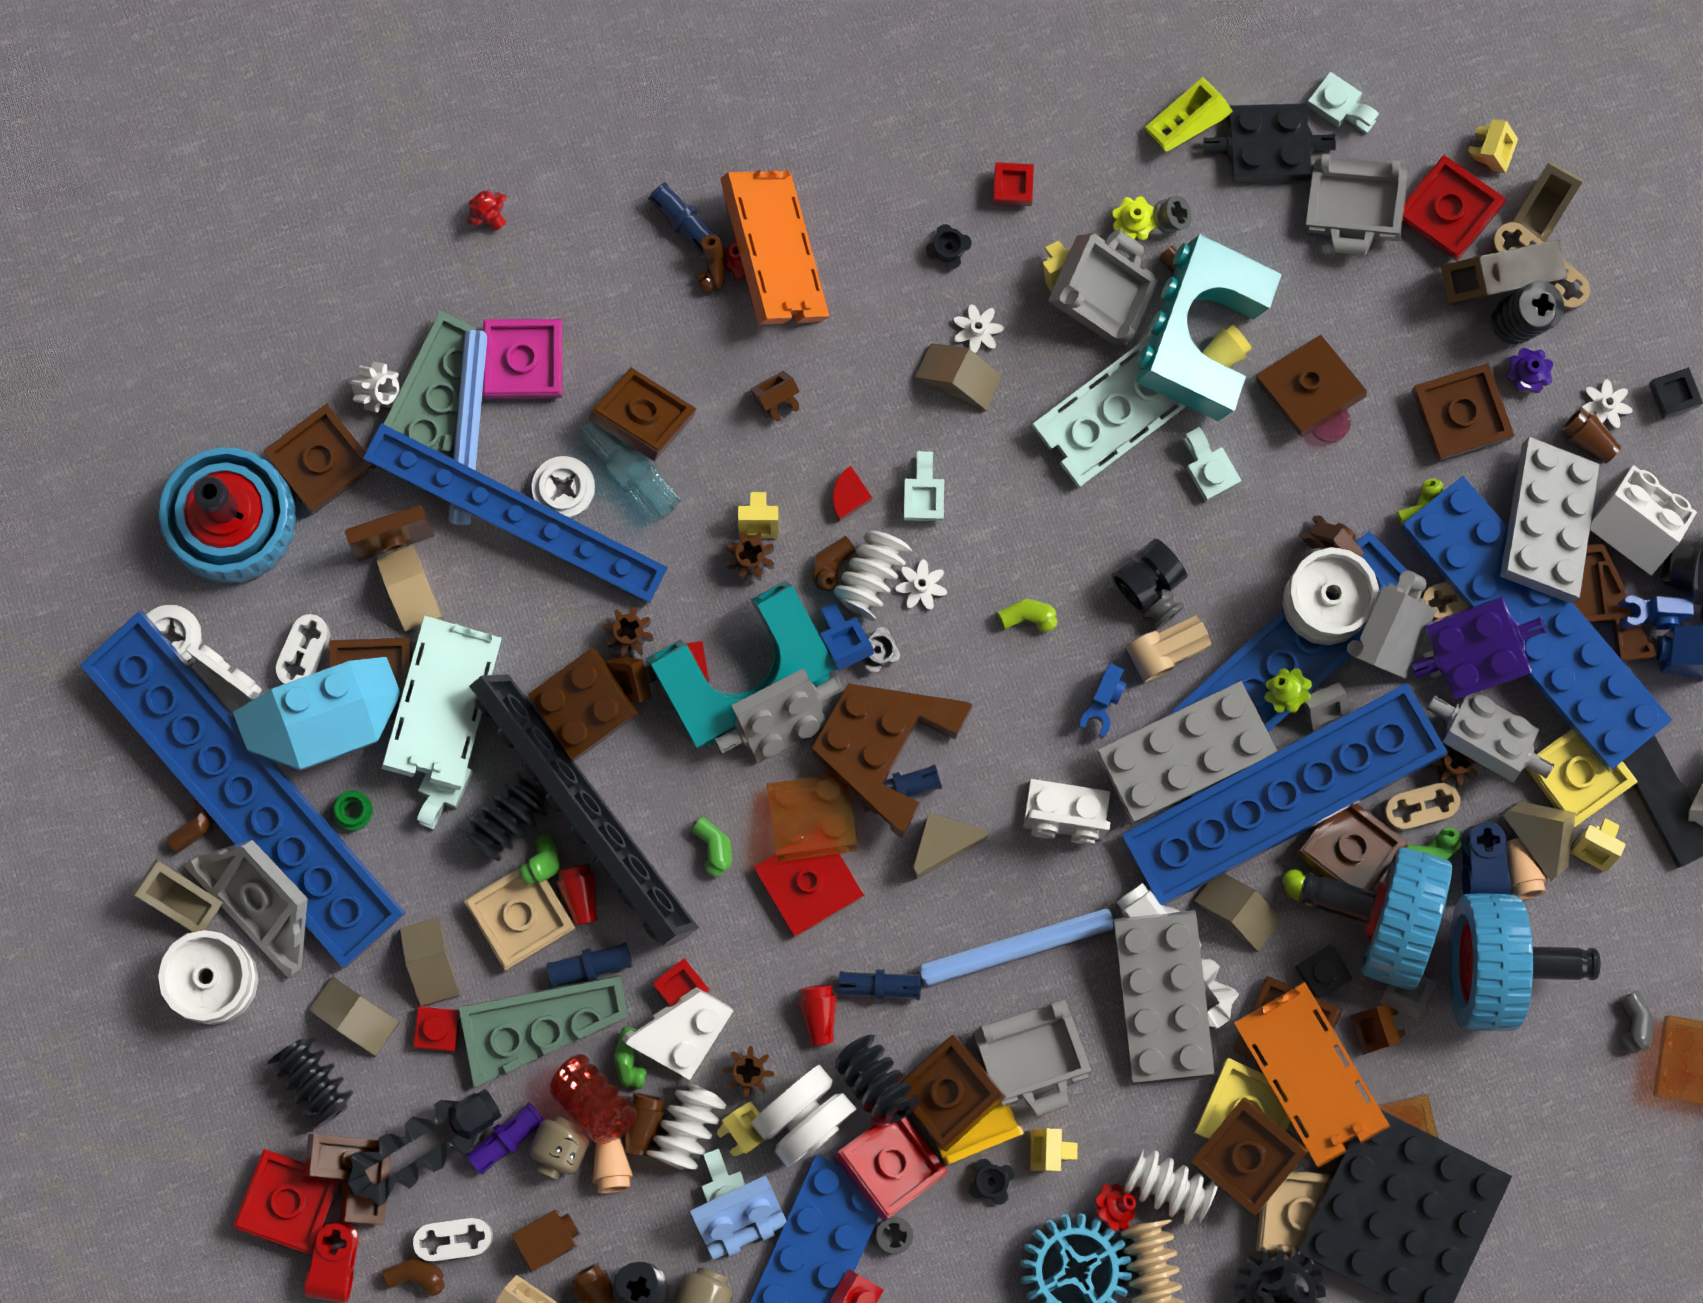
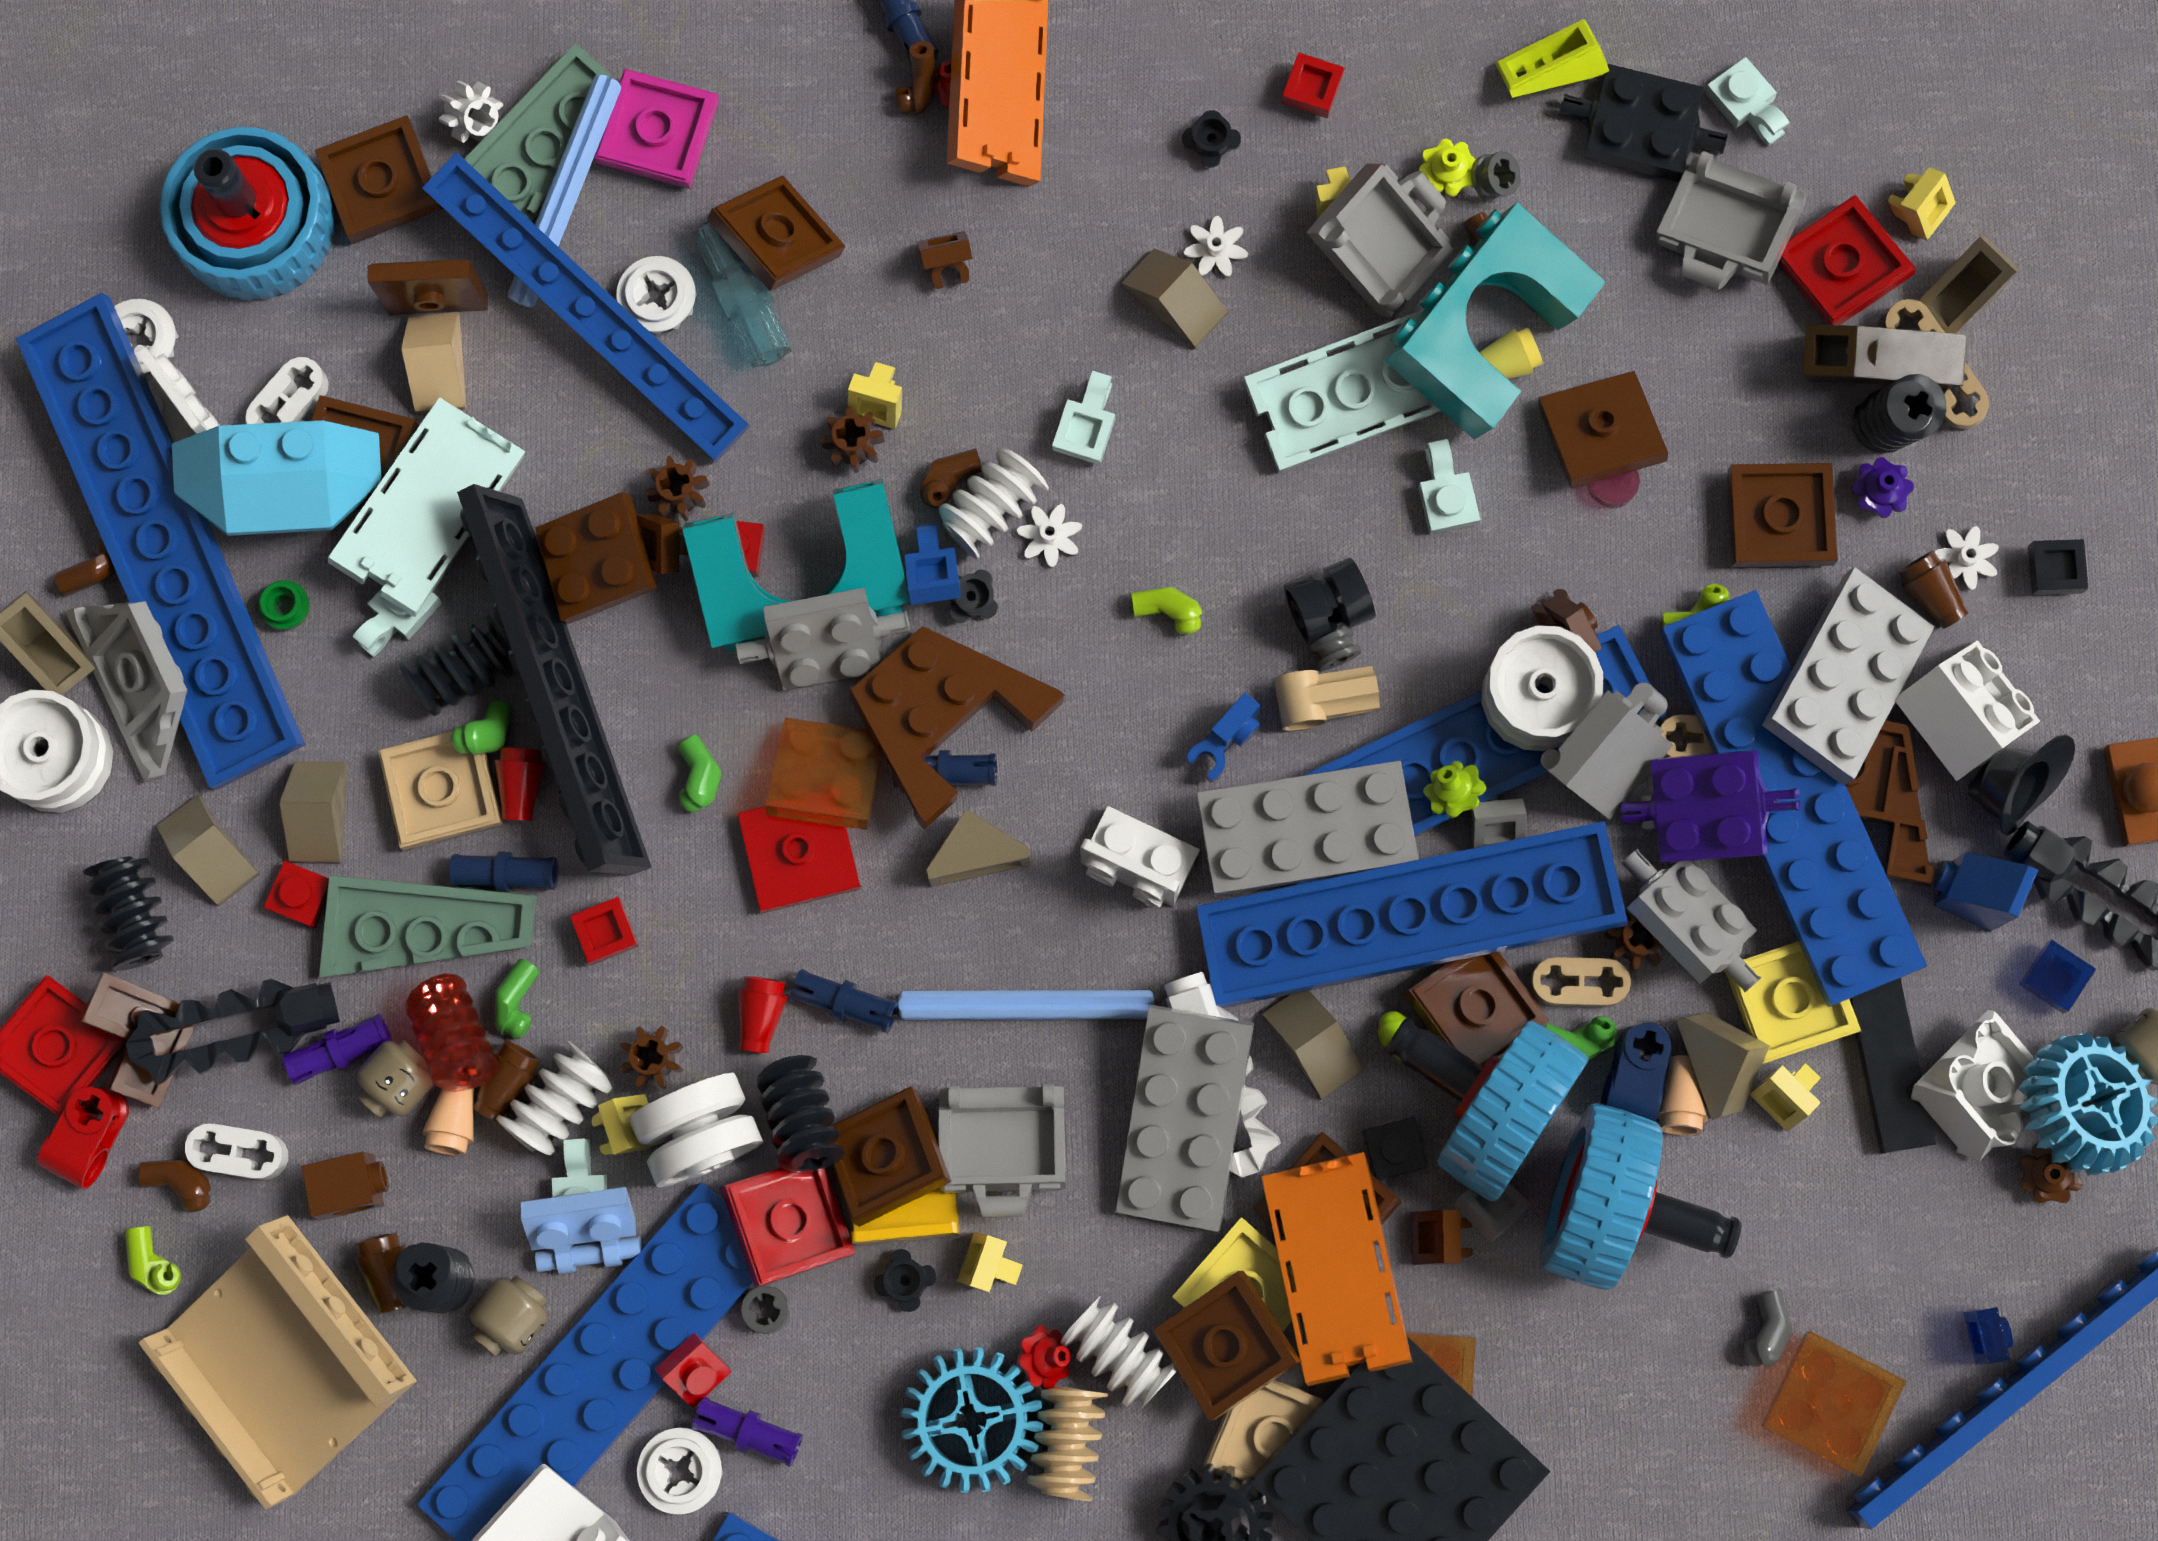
camera: 25 degrees right, 0 degrees up
(682, 1032) = (585, 985): white wing -> none
(849, 494) = (996, 400): red tile -> none
(1660, 612) = (1952, 828): blue plate -> none

